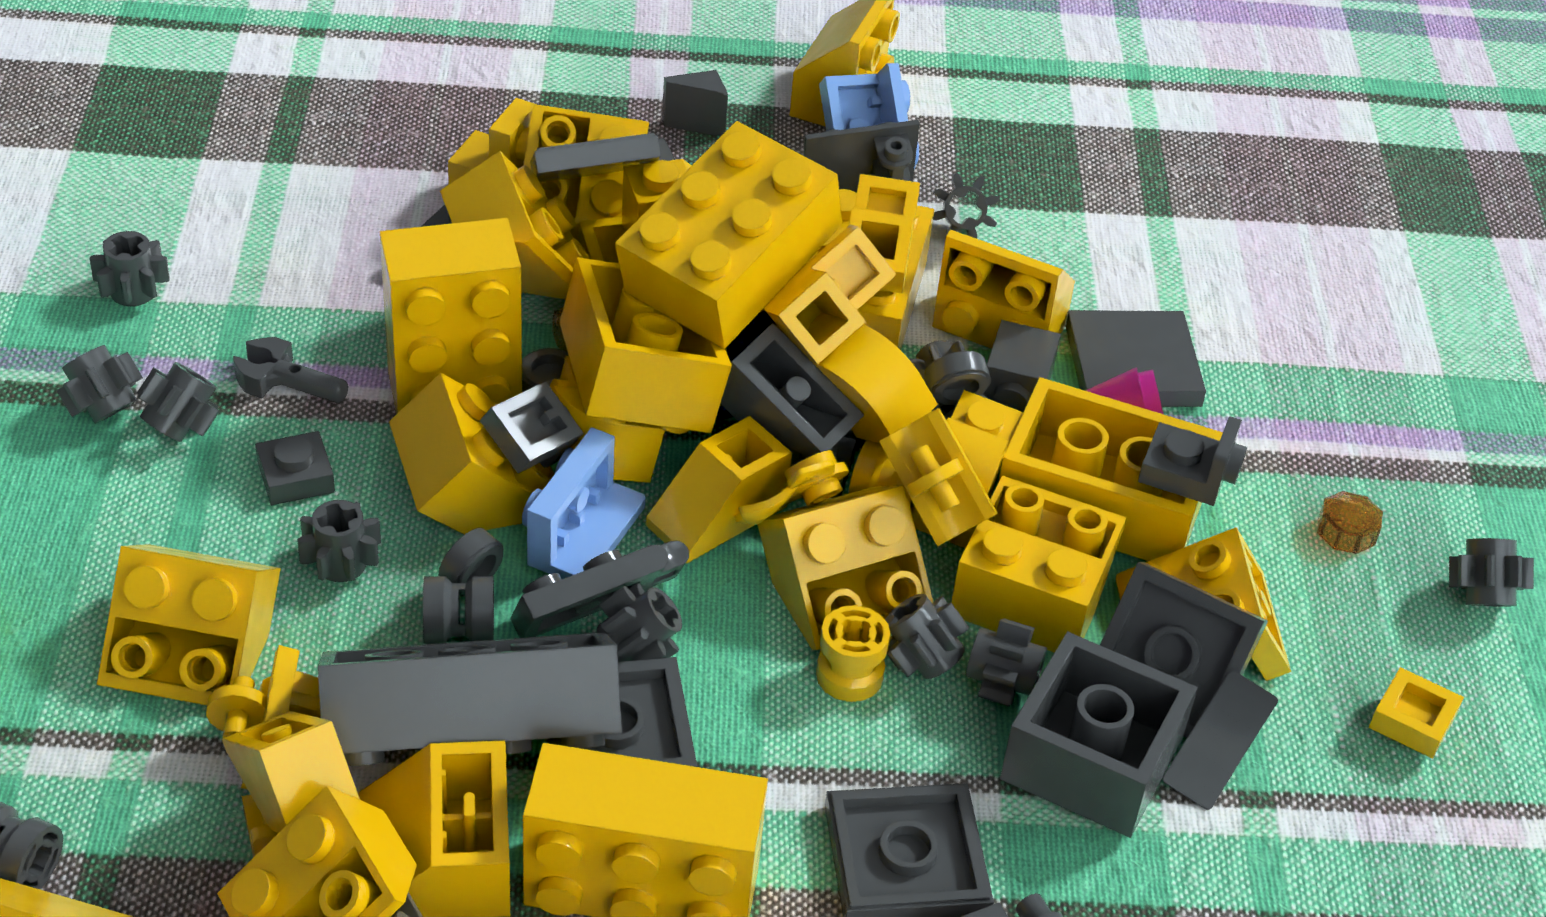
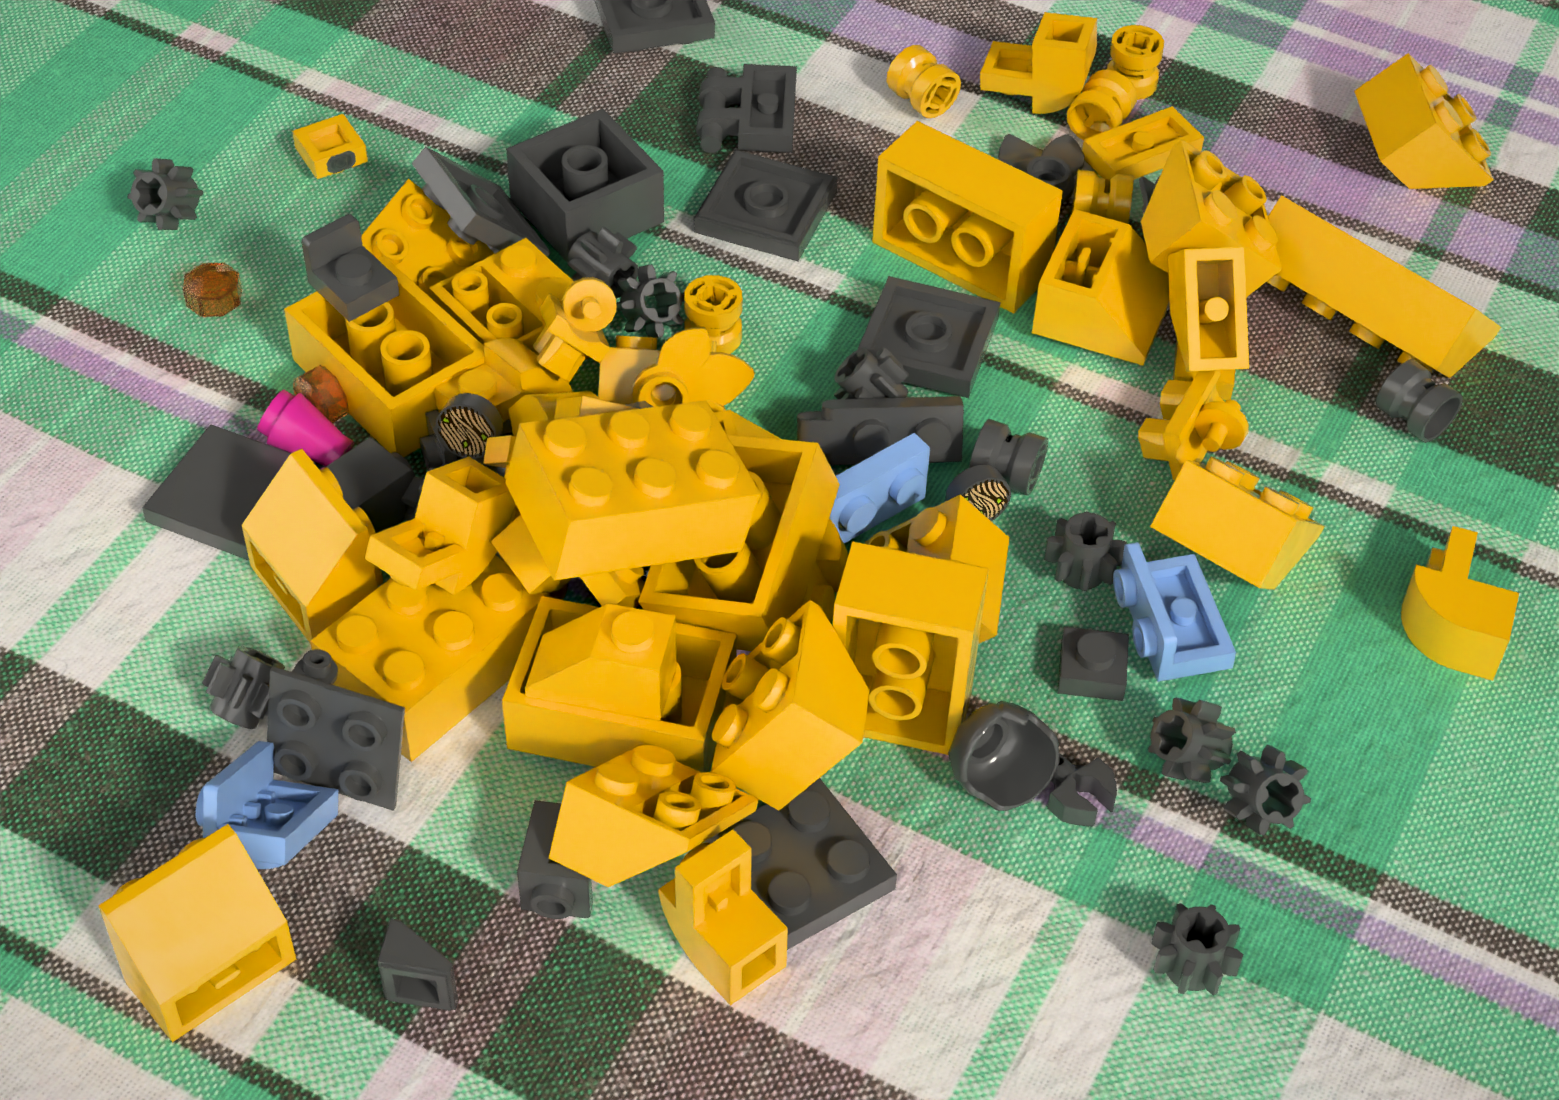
camera: 150 degrees left, 5 degrees up
(234, 506) = (1172, 615): none -> light blue bracket
(347, 341) = (1004, 755): none -> dark grey hair
(472, 694) = (1041, 351): dark grey slope -> none
(532, 428) = (886, 511): dark grey bracket -> none
(594, 157) = (680, 701): dark grey tile -> none
(1220, 739) = (488, 171): dark grey sticker -> none

